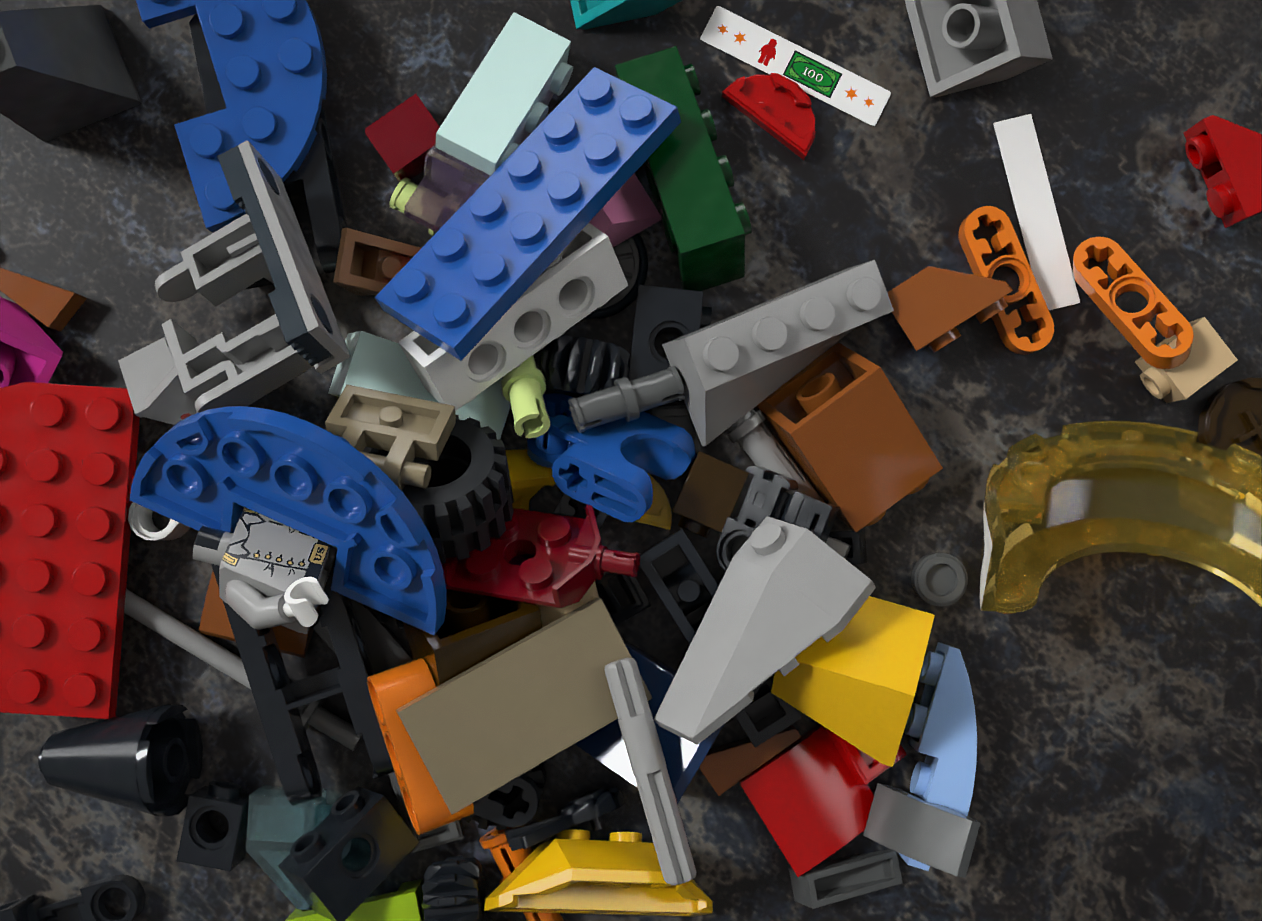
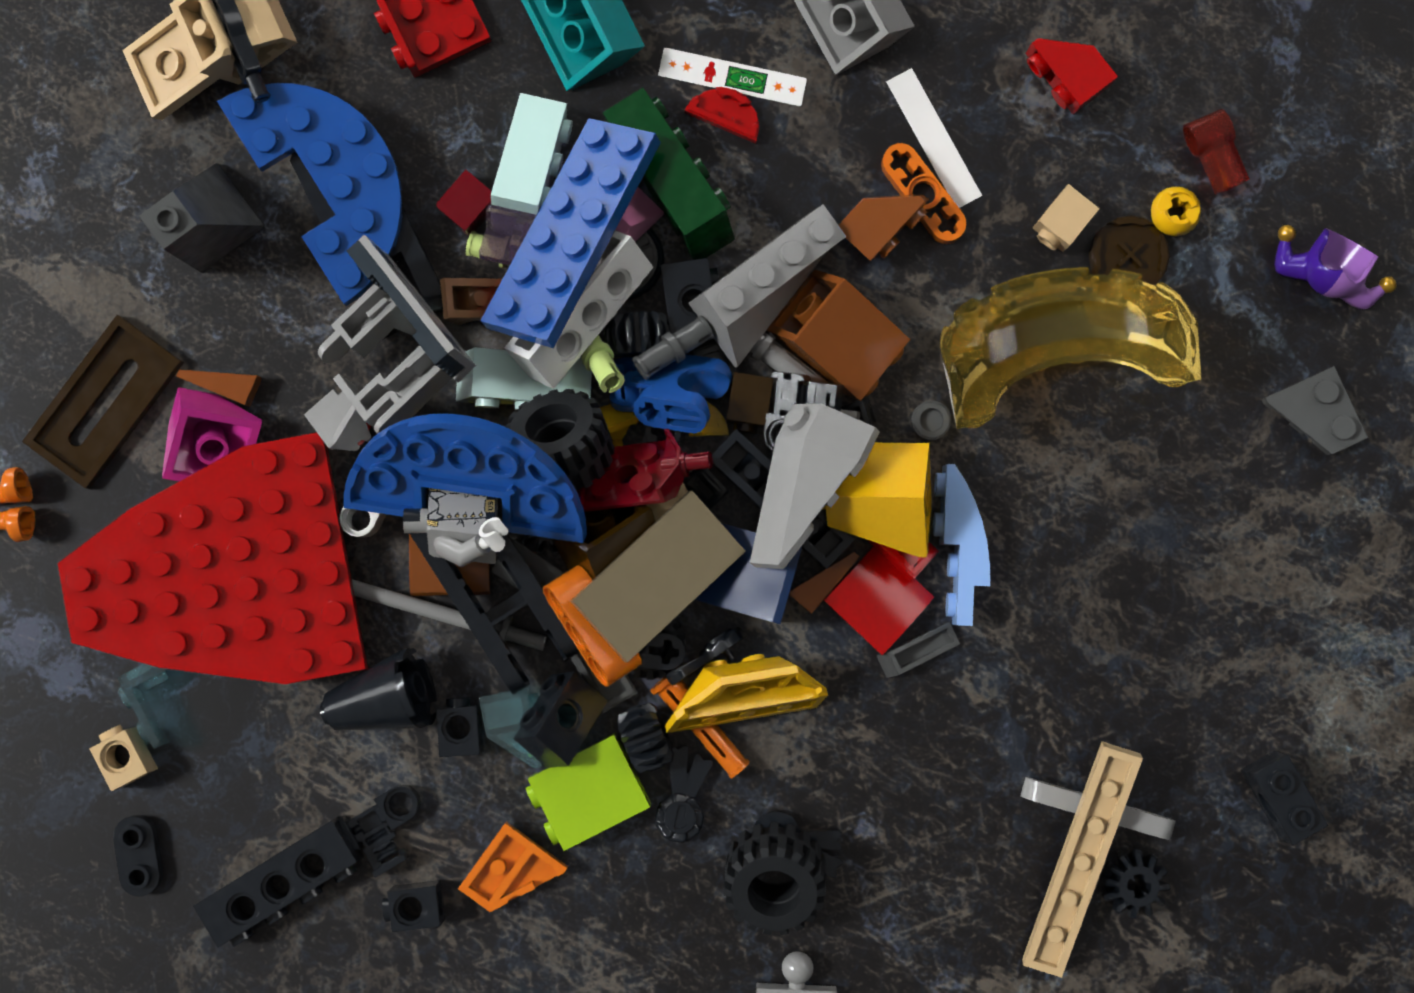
camera: 15 degrees left, 0 degrees up
(394, 424) = (519, 405): dark tan plate -> none
(650, 771) = (756, 599): light grey axle -> none
(922, 830) = (959, 596): dark grey slope -> none
(1127, 278) = (1020, 202): orange beam -> none

